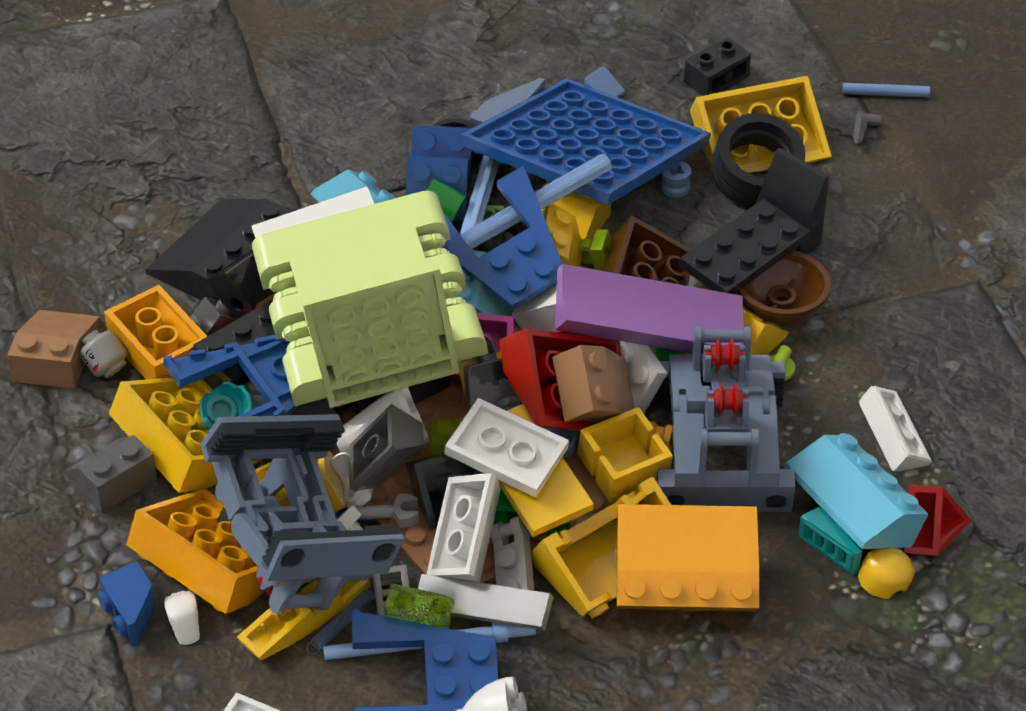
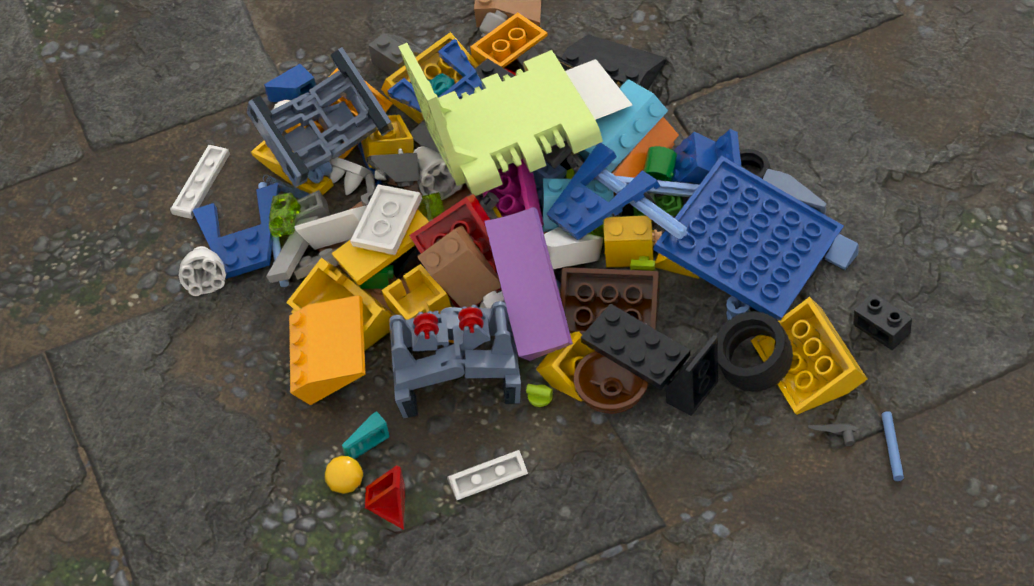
camera: 90 degrees right, 5 degrees up
(858, 493) = (396, 439): medium azure slope -> none

